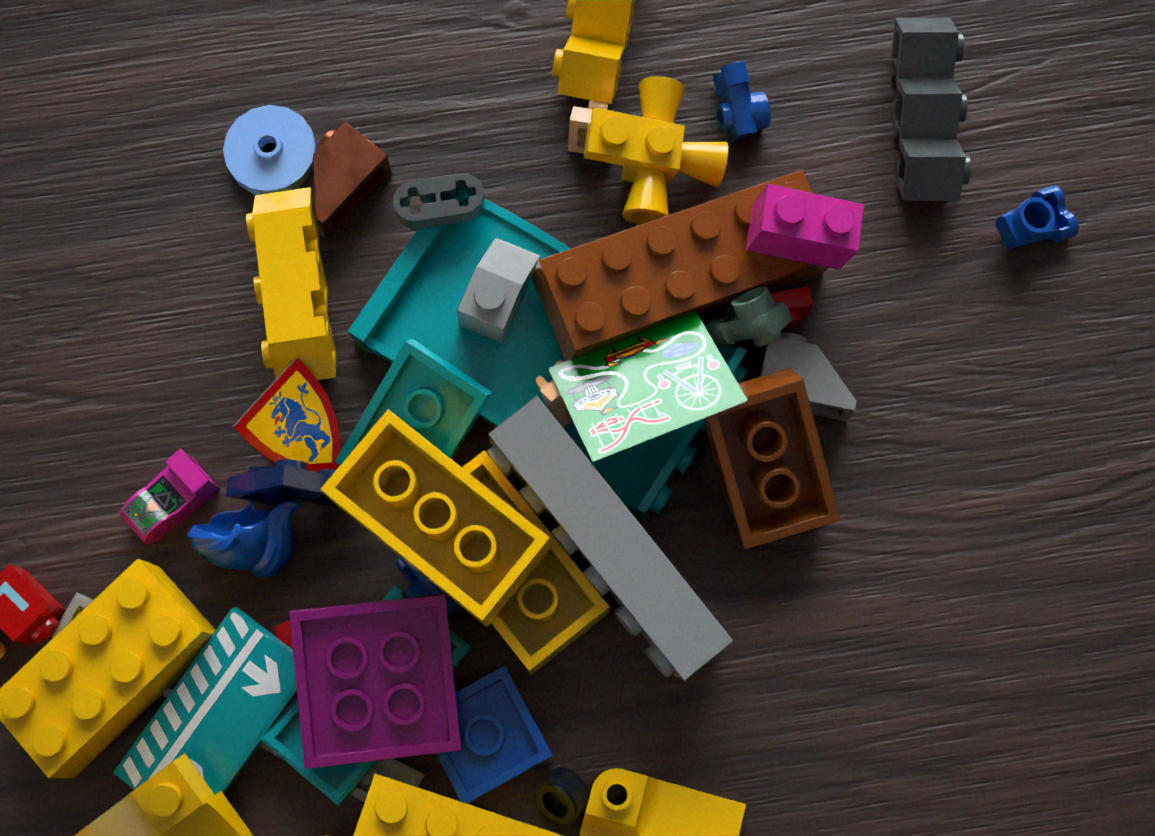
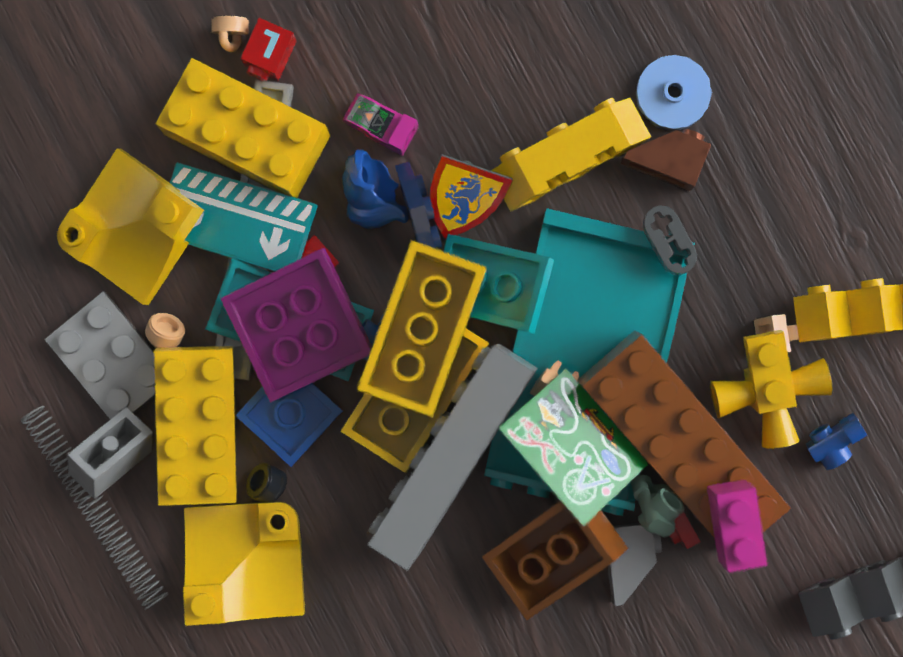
camera: 70 degrees right, 10 degrees up
(496, 290) = (617, 309): light grey slope -> none

